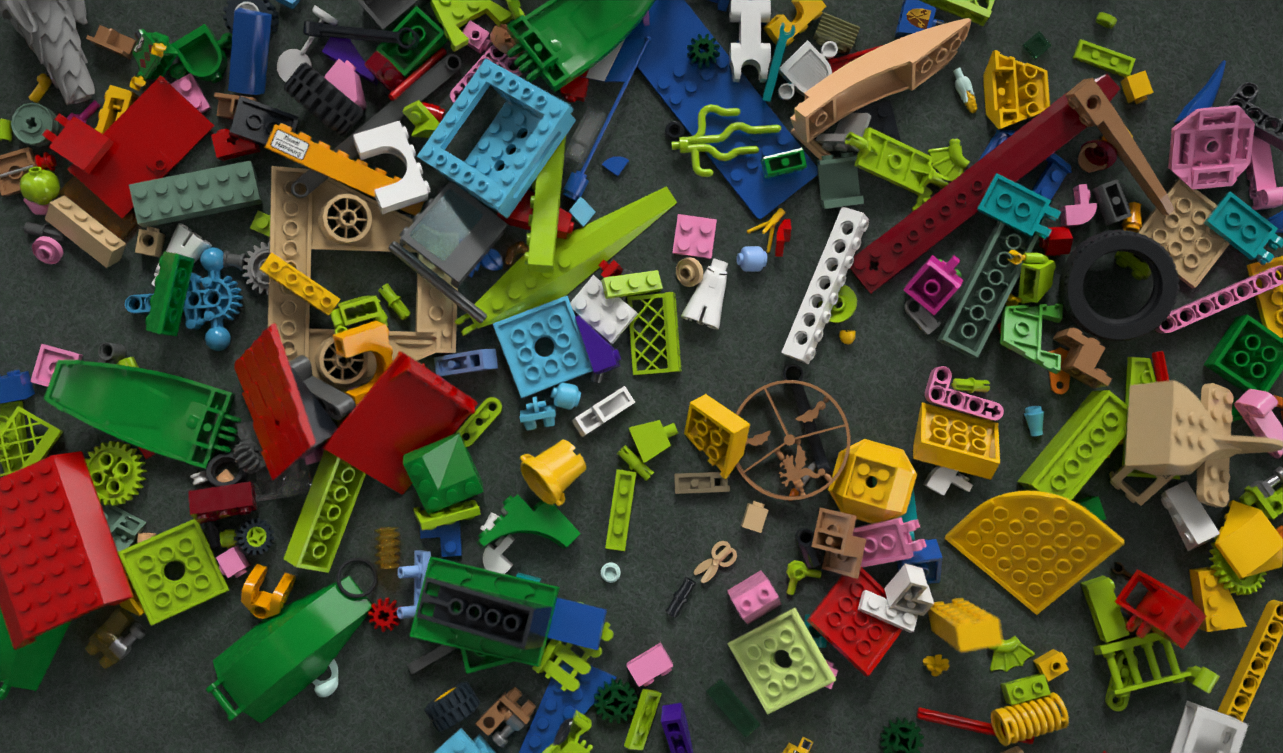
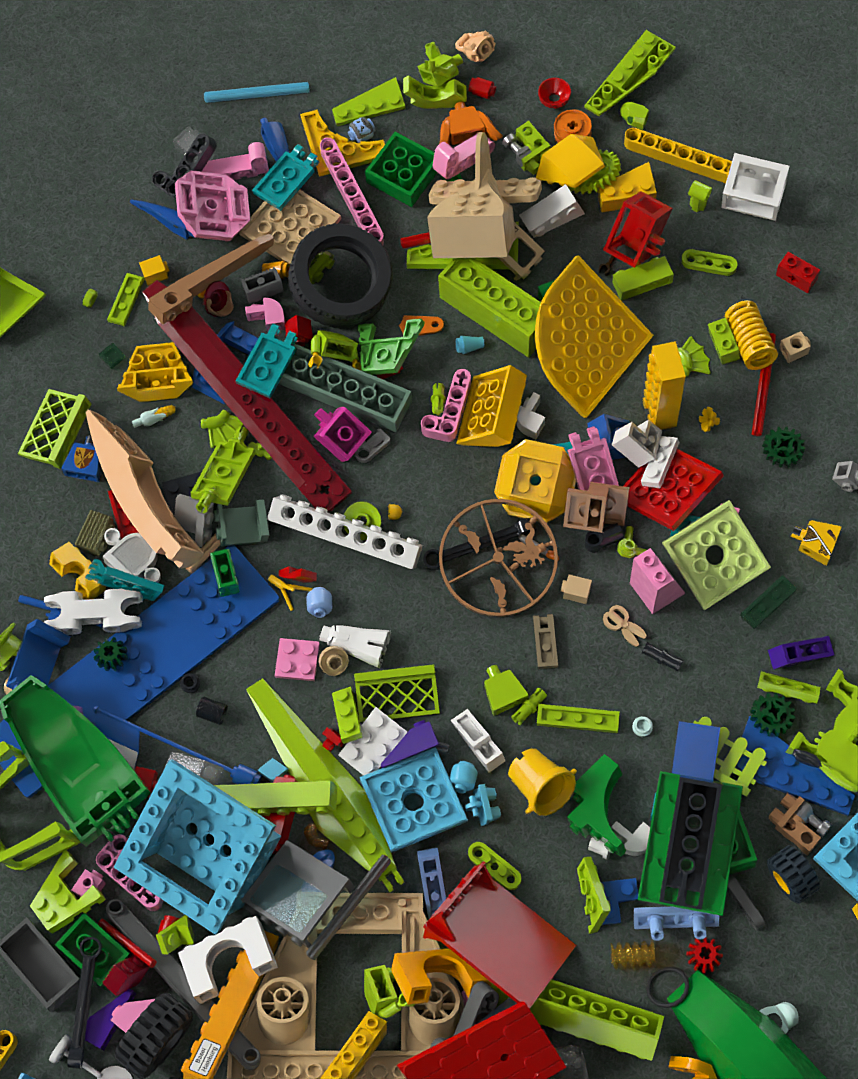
camera: 85 degrees left, 20 degrees down
(394, 301) = (371, 960): lime axle -> none
(443, 473) = (550, 895): green slope -> none
(502, 40) = (93, 853): nougat tile -> none
(615, 165) = (224, 739): blue tile -> none
(644, 151) = (211, 710): none -> black piece
(649, 665) = (733, 682): bright pink brick -> none
(698, 142) = (202, 657): lime plant -> none
(717, 433) = (494, 625): yellow wedge -> none
(1051, 664) = (698, 320): yellow brick -> none
(1082, 358) = (408, 303): medium nougat bracket -> none
(1127, 647) = (676, 257): lime fence -> none

